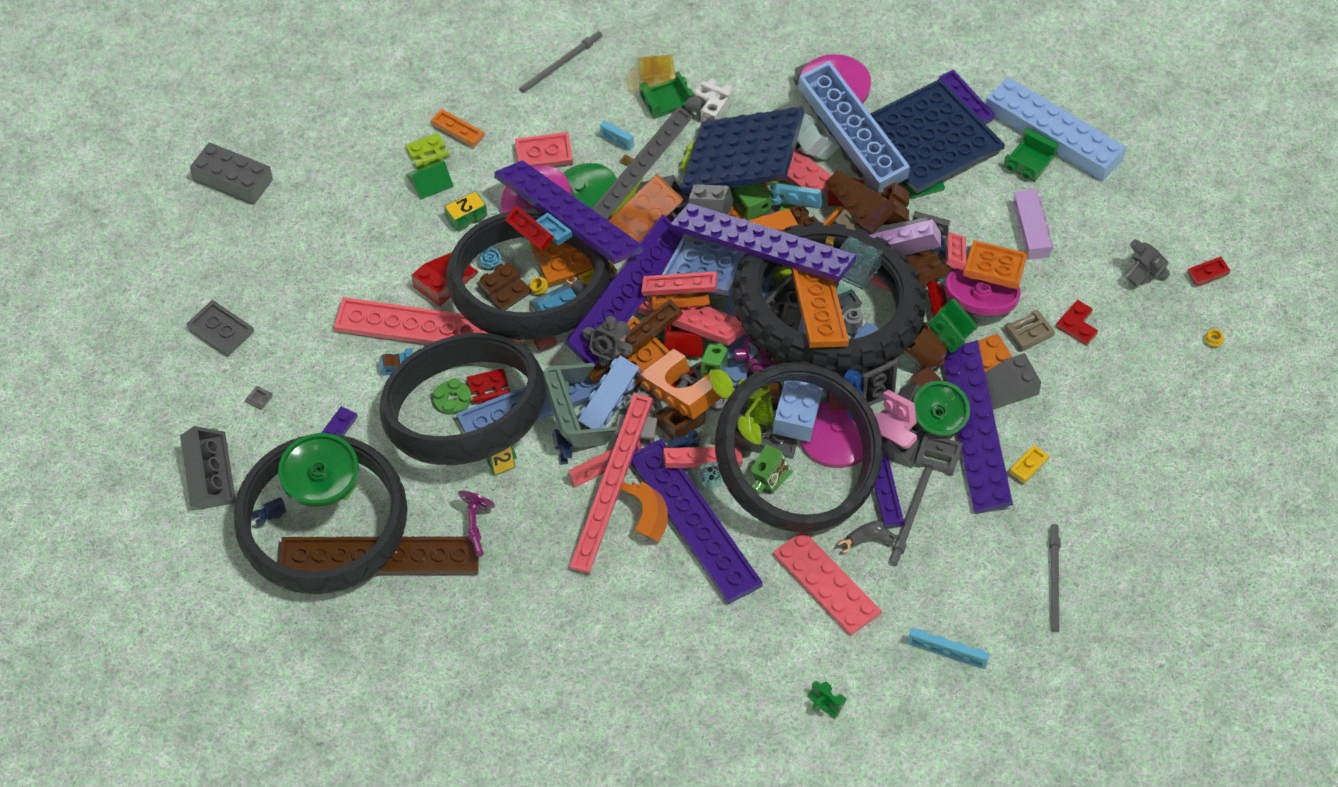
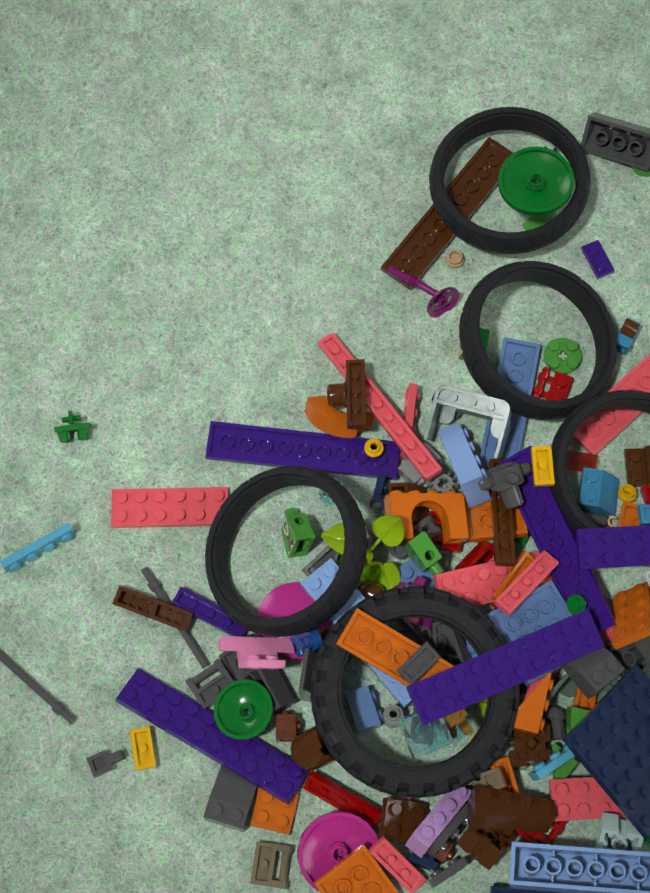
camera: 125 degrees right, 15 degrees up
(422, 525) = (454, 258): none -> tan plate
(579, 317) = (542, 466): none -> yellow plate
(621, 500) = (351, 394): none -> reddish brown plate
(651, 470) = (373, 453): none -> yellow plate
(666, 249) = (576, 604): none -> green plate
(693, 456) = (358, 487): coral plate -> none
(813, 286) = (418, 663): none -> dark grey tile
(867, 531) = (185, 569): dark grey arm -> none
(919, 530) = (152, 608): none -> reddish brown slope
(952, 325) = (317, 786): green panel -> none
(1065, 482) = (102, 762): none -> dark grey plate

